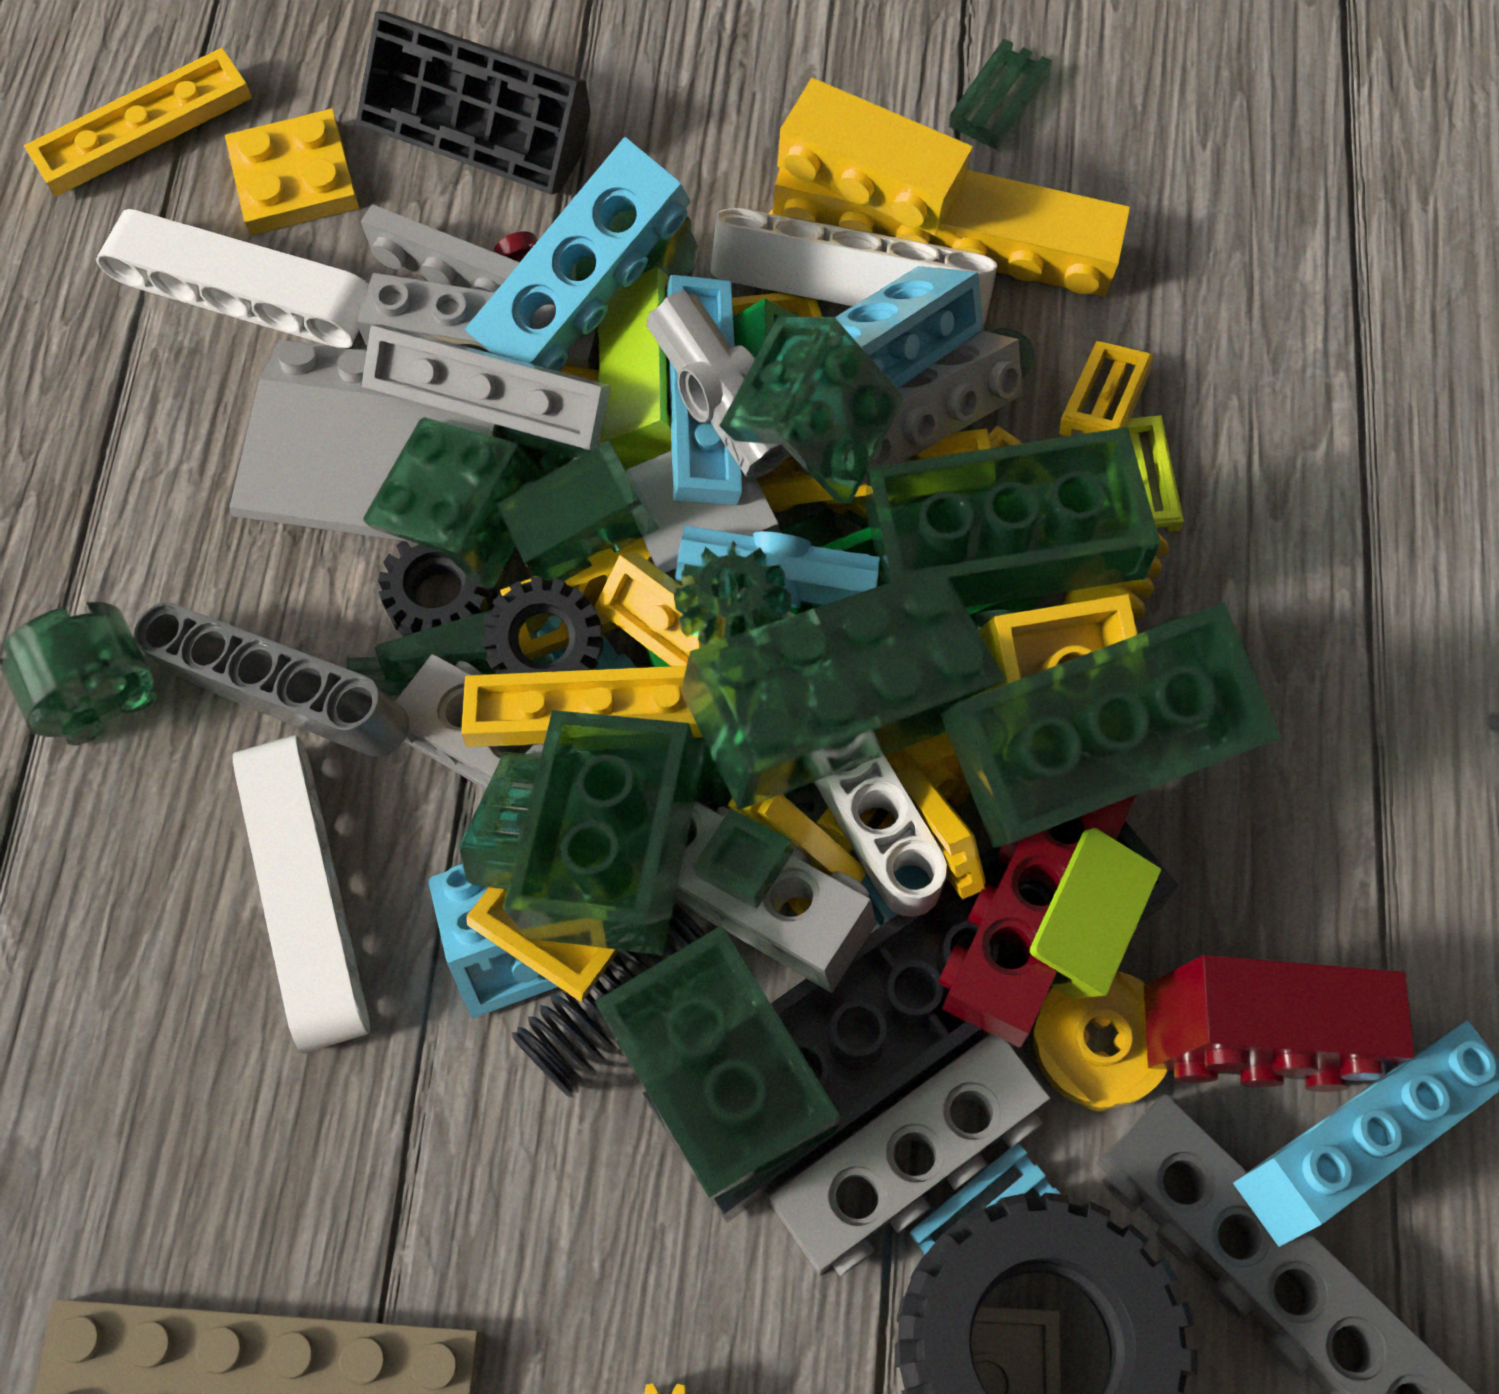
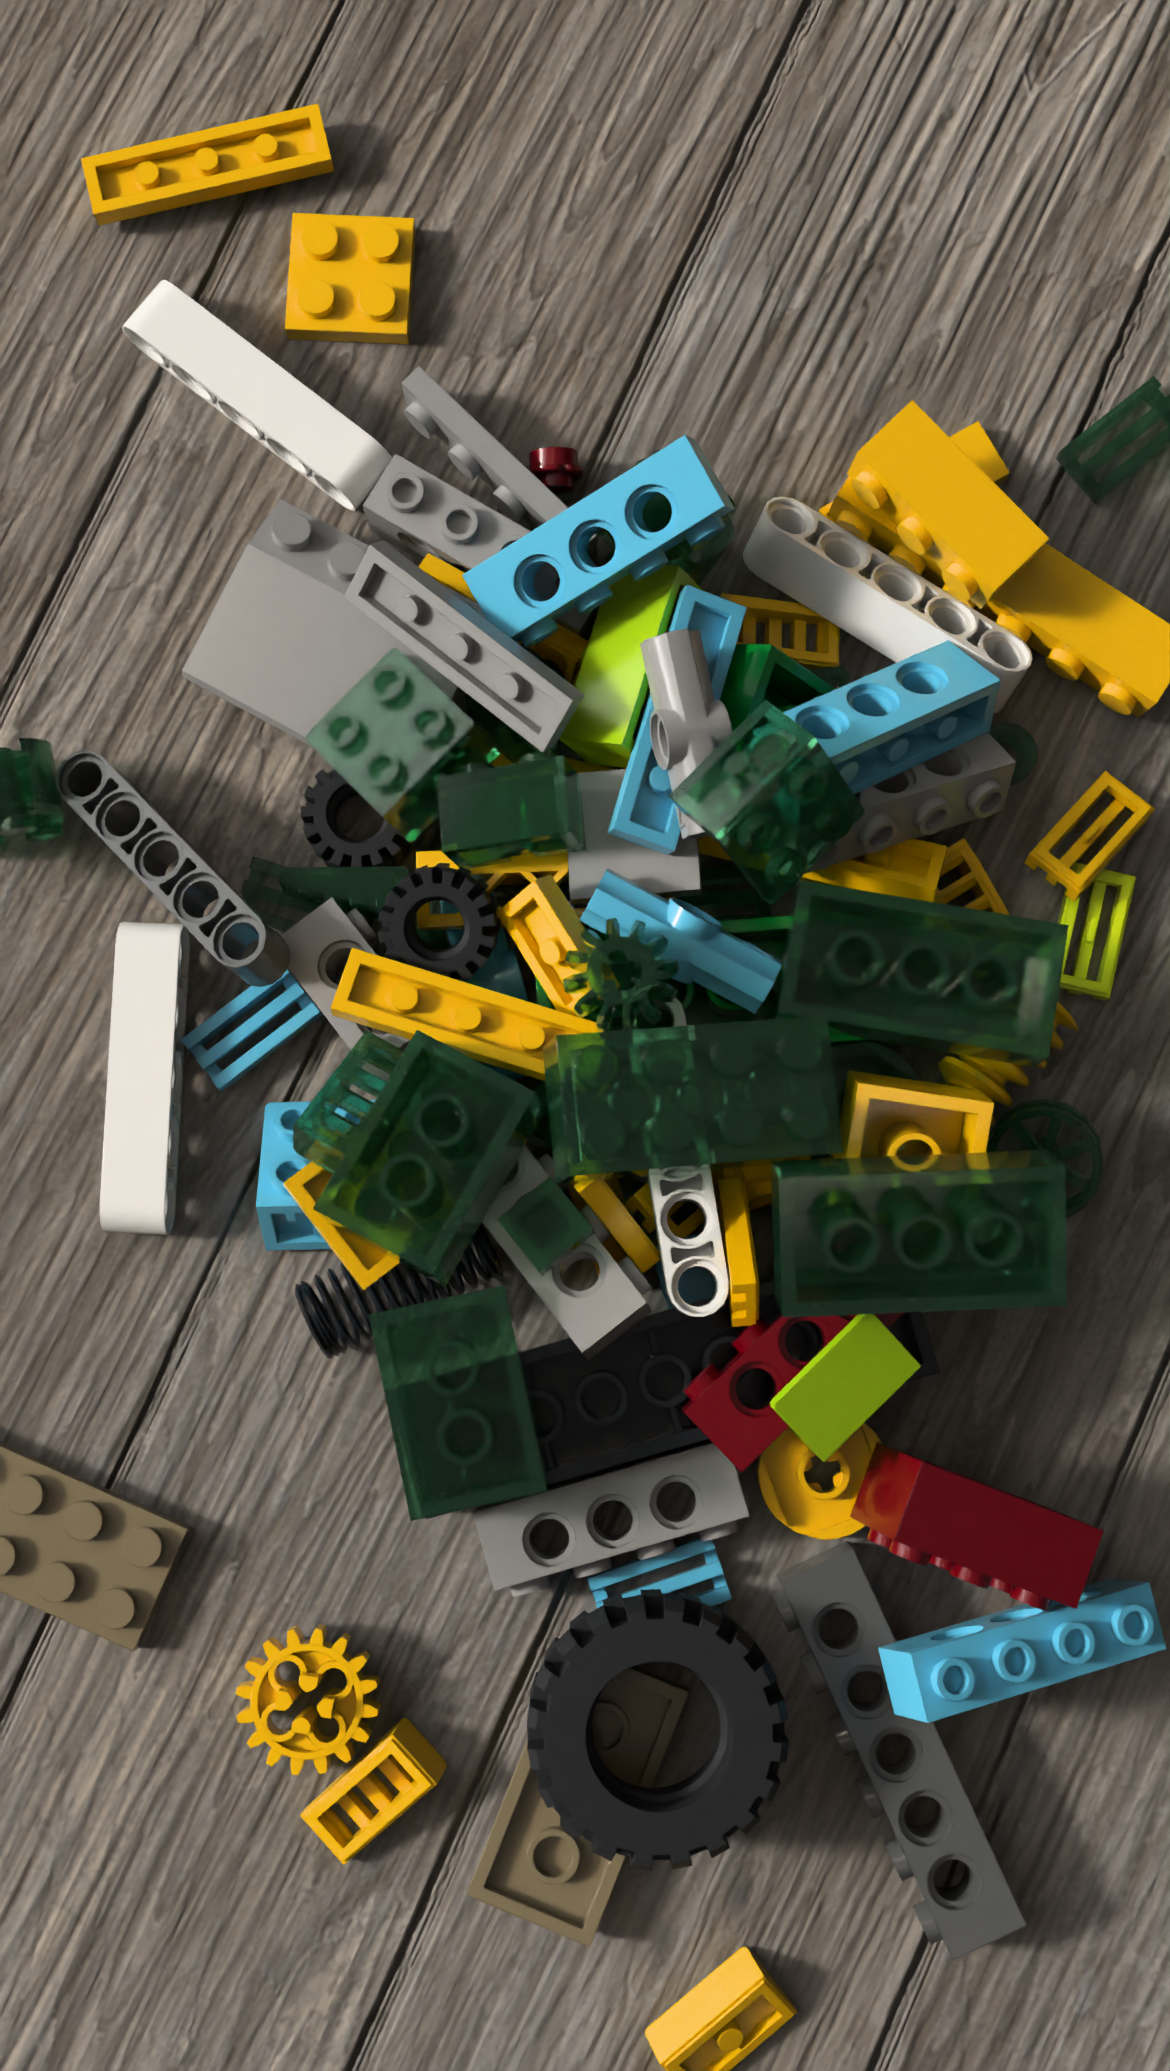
camera: 20 degrees right, 15 degrees up
(373, 798) = (234, 1009): none -> medium azure tile
(473, 103) = (559, 271): black piece -> none

